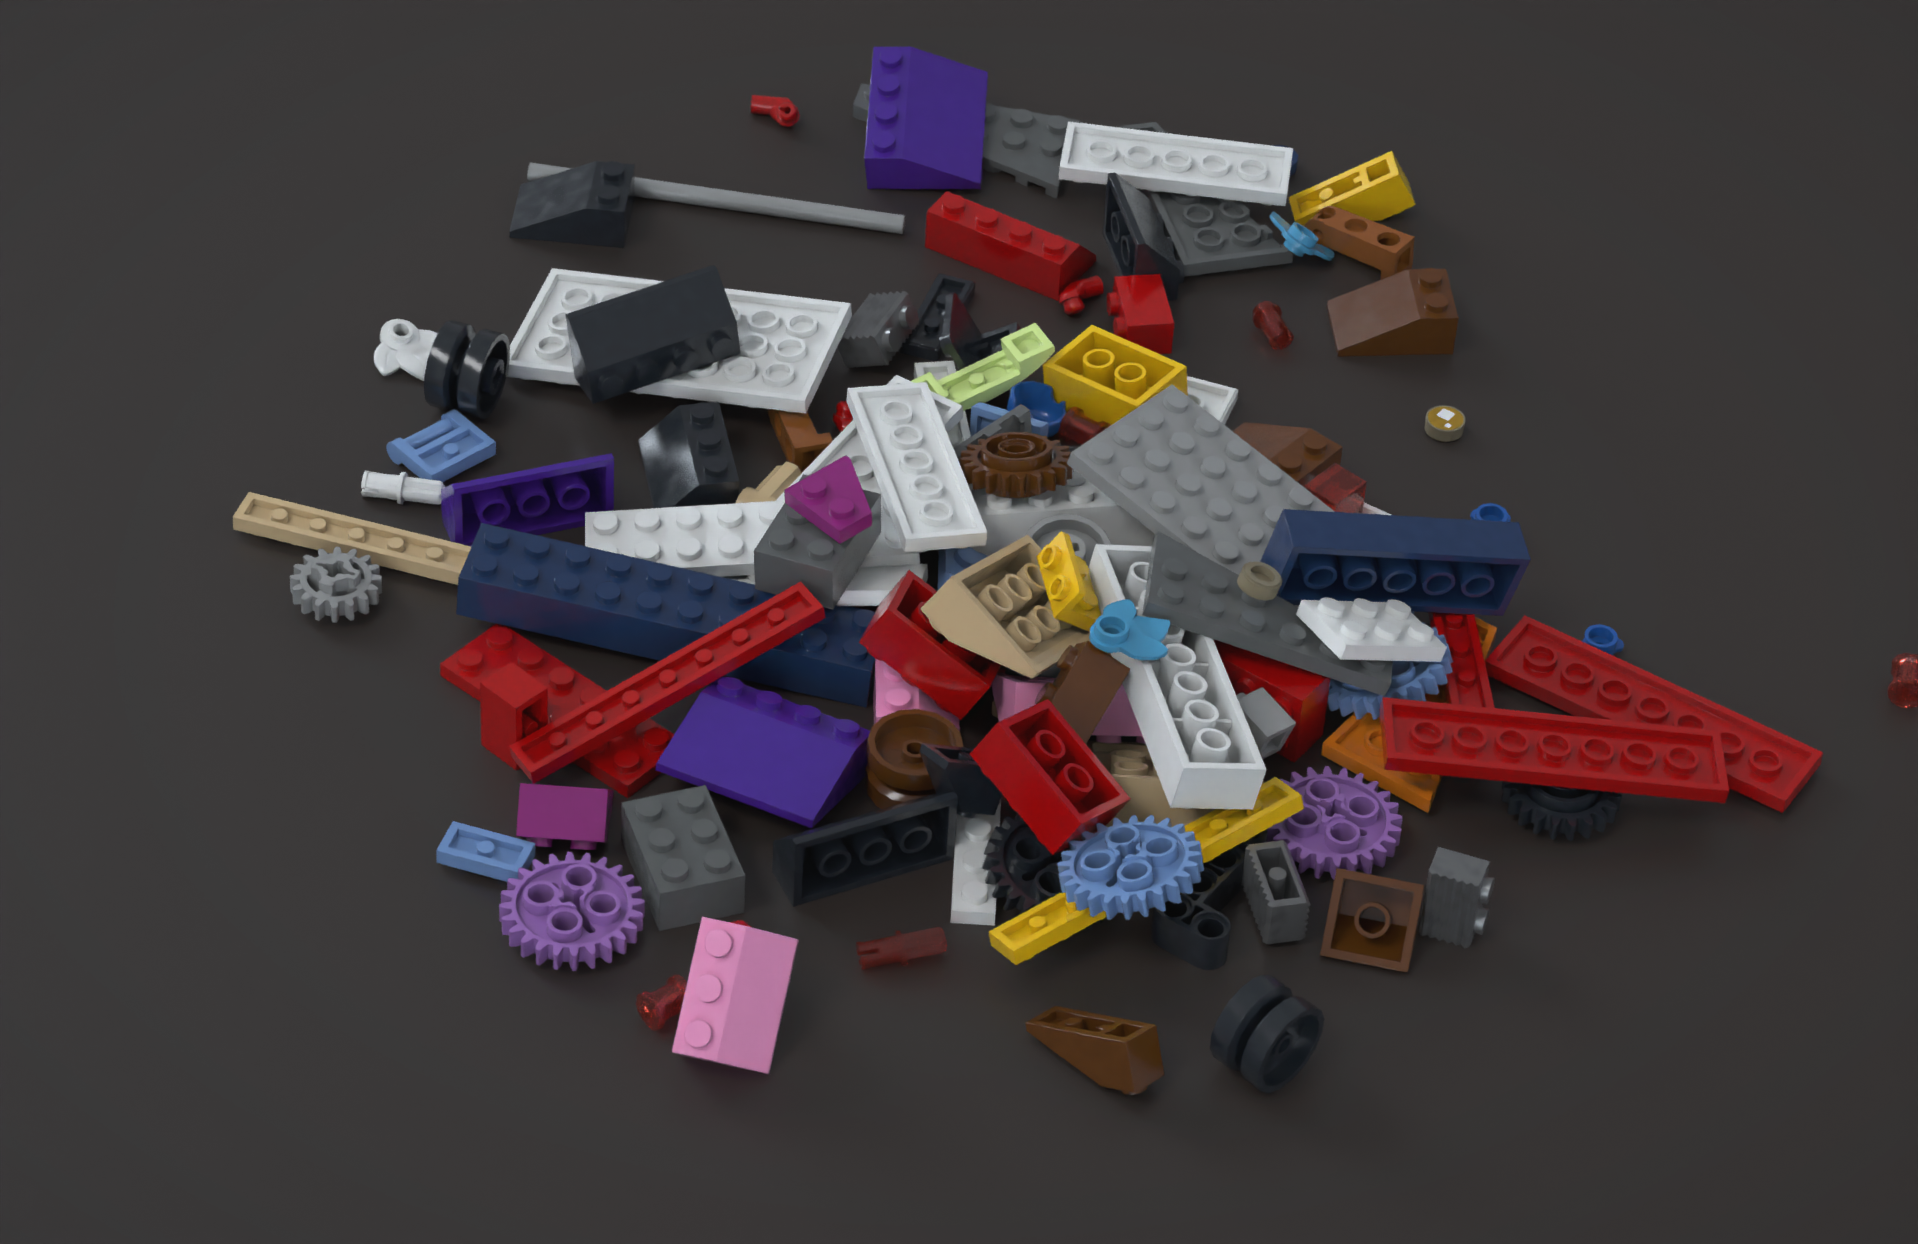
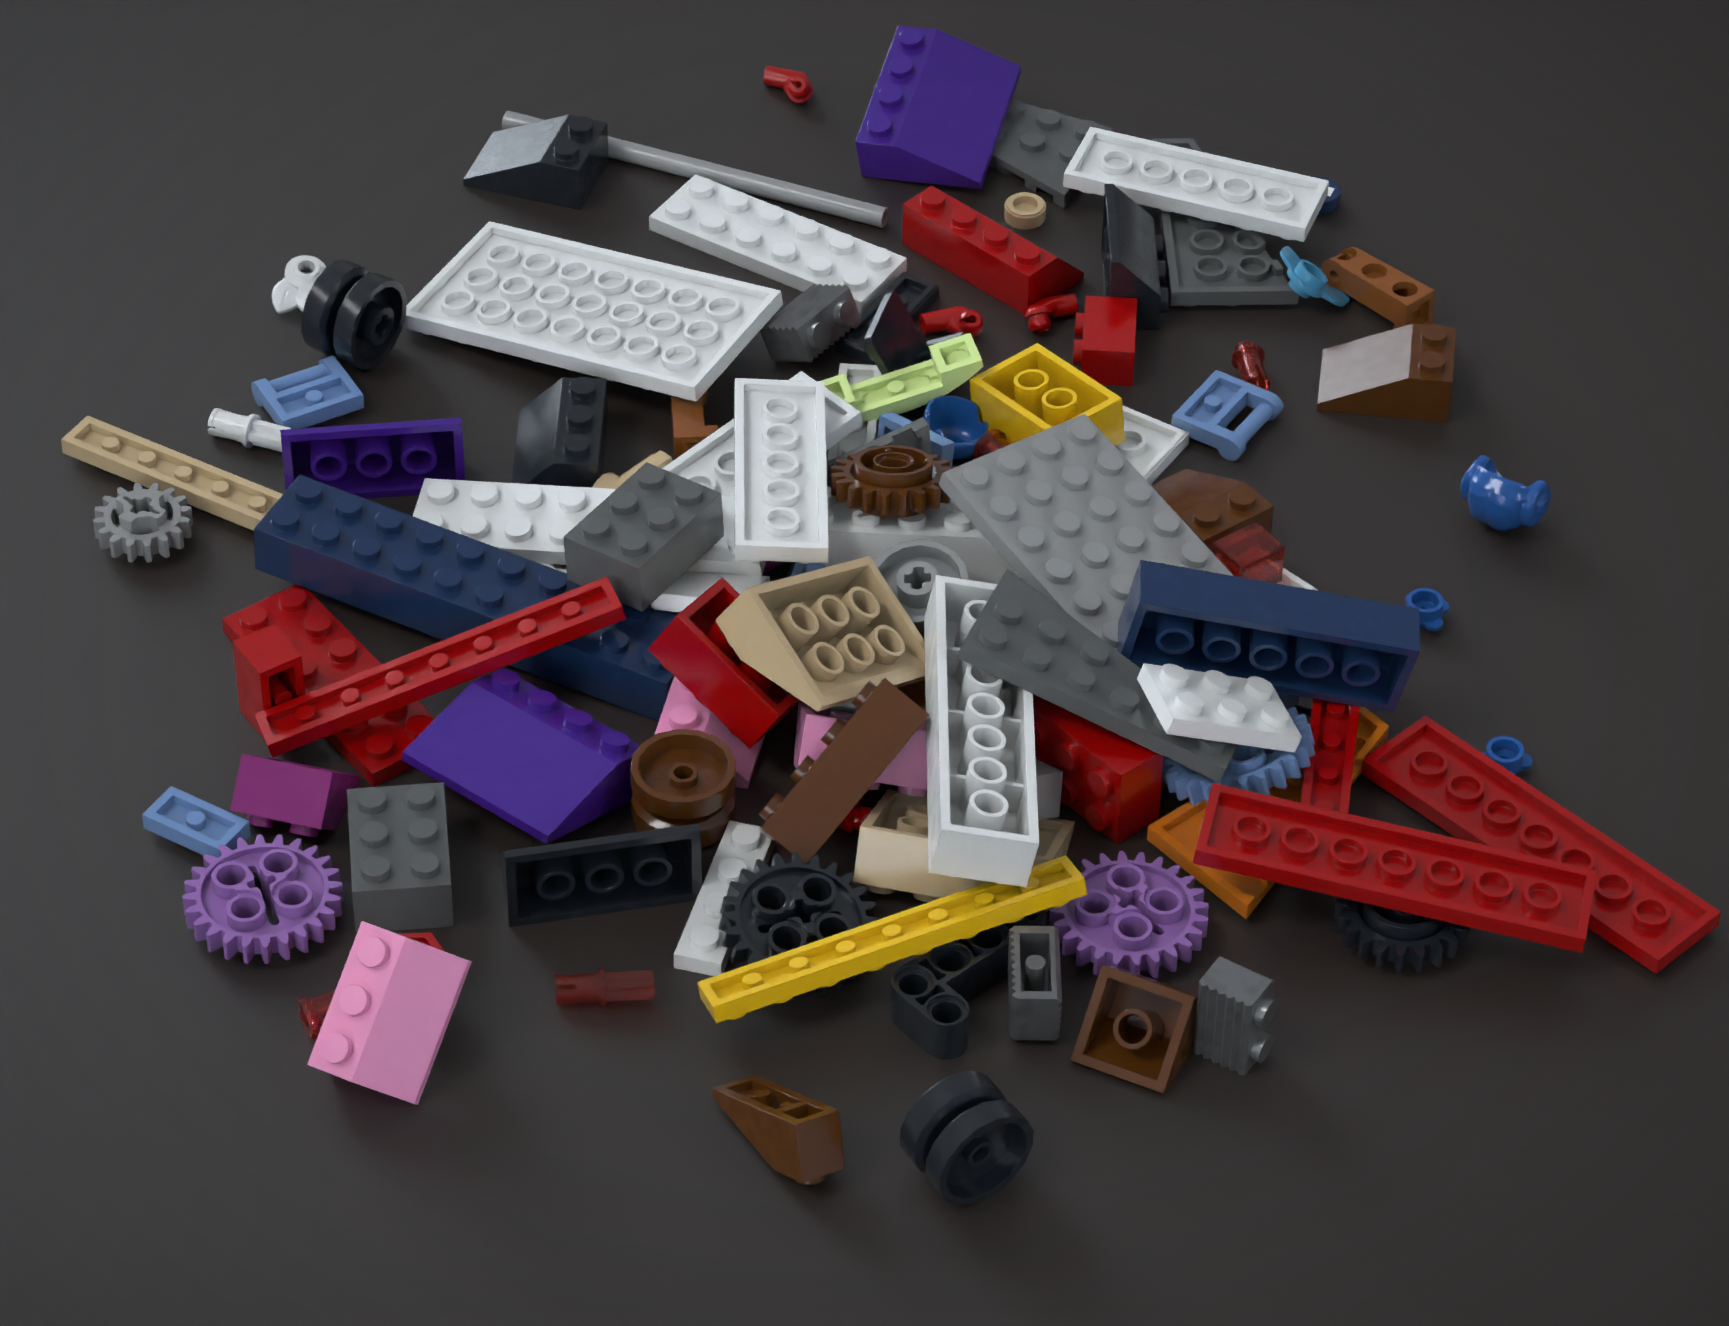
camera: 15 degrees right, 0 degrees up
(652, 334) = (550, 298): black slope -> none
(811, 257) = (774, 241): none -> white plate
(832, 500) = (660, 492): magenta wing -> none
(955, 770) = (727, 809): black slope -> none
(998, 312) = (952, 320): none -> red arm
(1025, 204) = (1025, 211): none -> tan tile
(1049, 775) = (805, 820): red brick -> none
(1068, 583) = (898, 616): yellow bracket -> none
(1128, 633) = (932, 674): dark azure plate -> none
(1130, 867) = (864, 932): medium blue gear -> none
(1254, 362) = (1217, 404): none -> medium blue plate
(1259, 580) = (1102, 636): dark tan tile -> none
(1266, 720) = (1069, 796): light grey brick -> none
(1369, 190) = (1400, 237): yellow slope -> none
(1444, 423) = (1410, 496): tile -> none
(1528, 418) = (1502, 501): none -> blue hair

